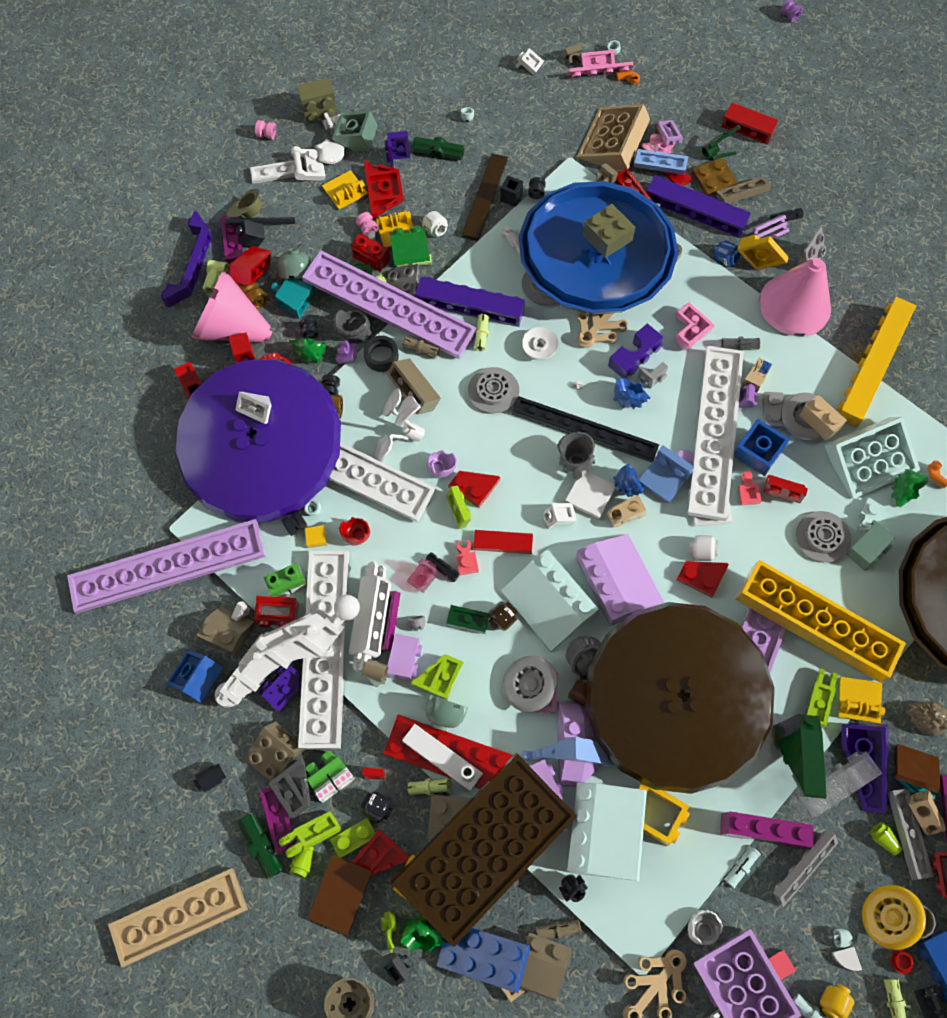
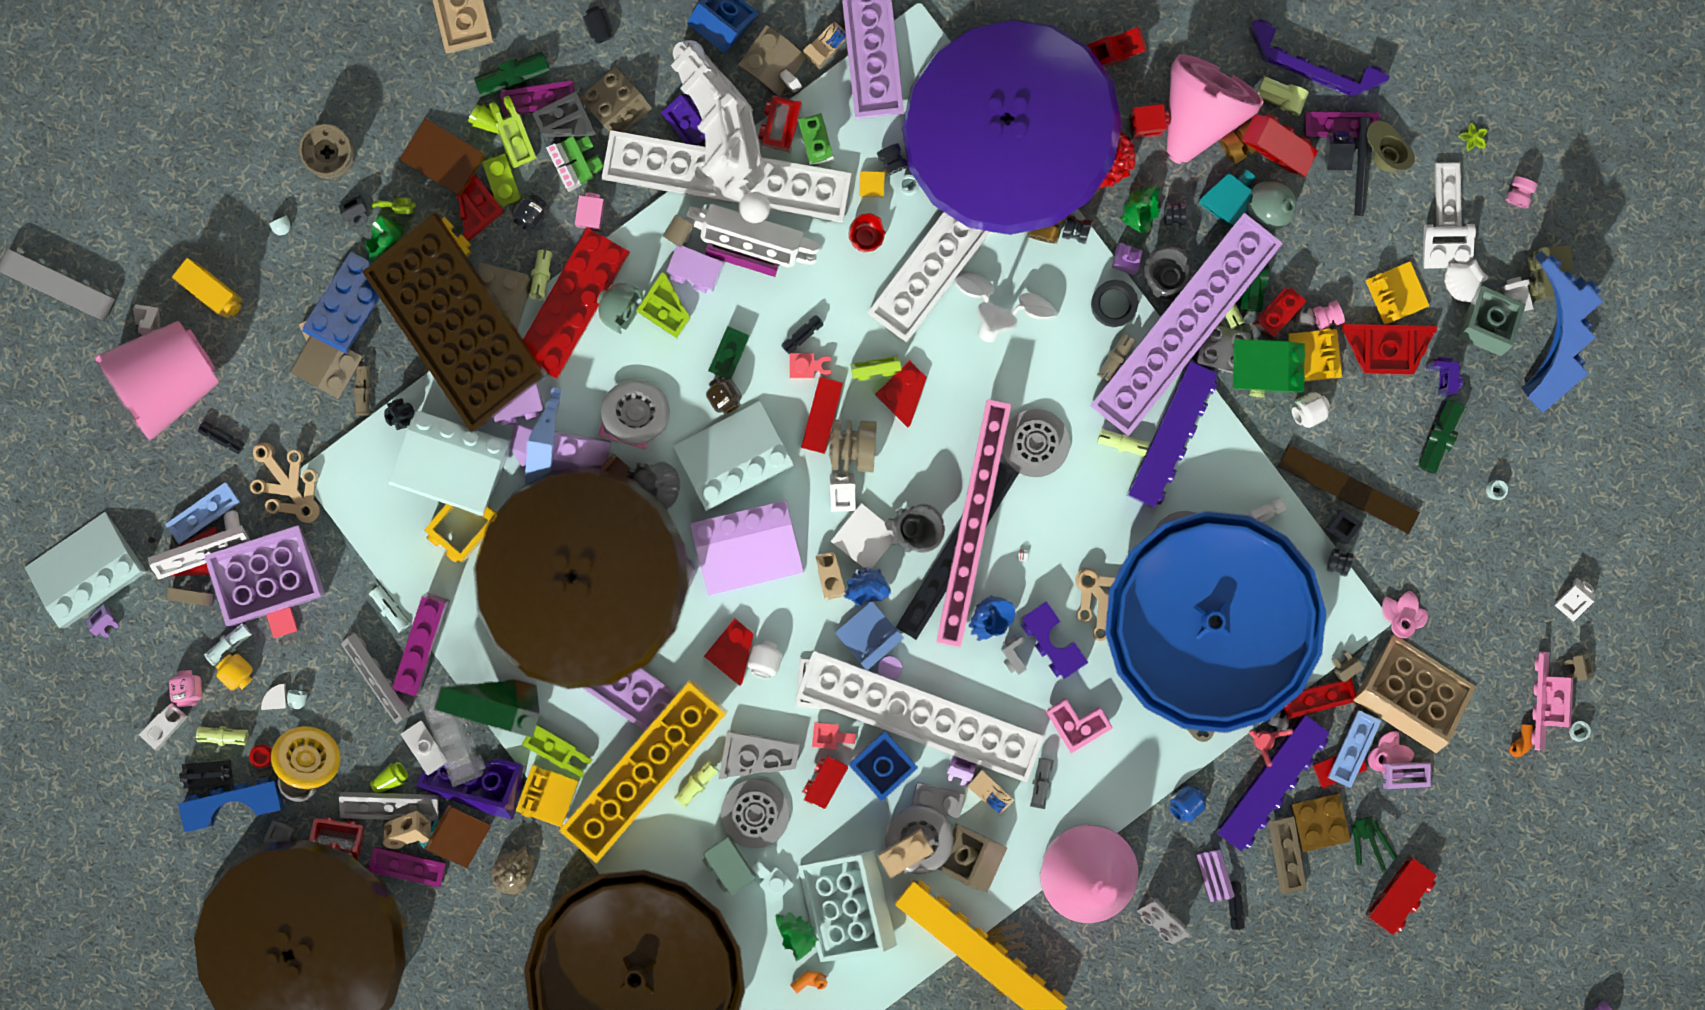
camera: 100 degrees right, 20 degrees up
(209, 591) = (825, 45): none -> tan leg
(232, 164) = (1474, 137): none -> lime plant
(254, 406) = (1038, 127): white slope -> none
(355, 77) = (1572, 333): none -> arch
(369, 755) = (590, 211): none -> bright pink brick
(374, 773) = (567, 213): red tile -> none
(412, 383) = (1054, 338): dark tan brick -> none
(417, 621) = (737, 292): light grey hinge -> none
(423, 575) = (793, 308): clear pink bracket -> none
(441, 464) = (938, 355): lavender hair -> none
(442, 757) = (567, 294): white piece -> none
(523, 508) = (853, 445): none -> dark tan wheel
(543, 337) = (1102, 516): white dish -> none
(562, 151) = (1405, 611): none -> bright pink plate
(564, 413) = (973, 523): none -> bright pink brick
(608, 230) = (1227, 637): olive brick -> none
(670, 213) = (1265, 740): none -> coral plant
(704, 927) = (334, 550): light grey hair -> none
(761, 252) = (1172, 845): yellow plate -> none
(777, 542) = (753, 754): none -> light grey wing
(809, 376) = (973, 858): none -> dark tan slope
(815, 583) = (696, 784): none -> yellowish green pin
(851, 812) = (423, 747): none -> white plate

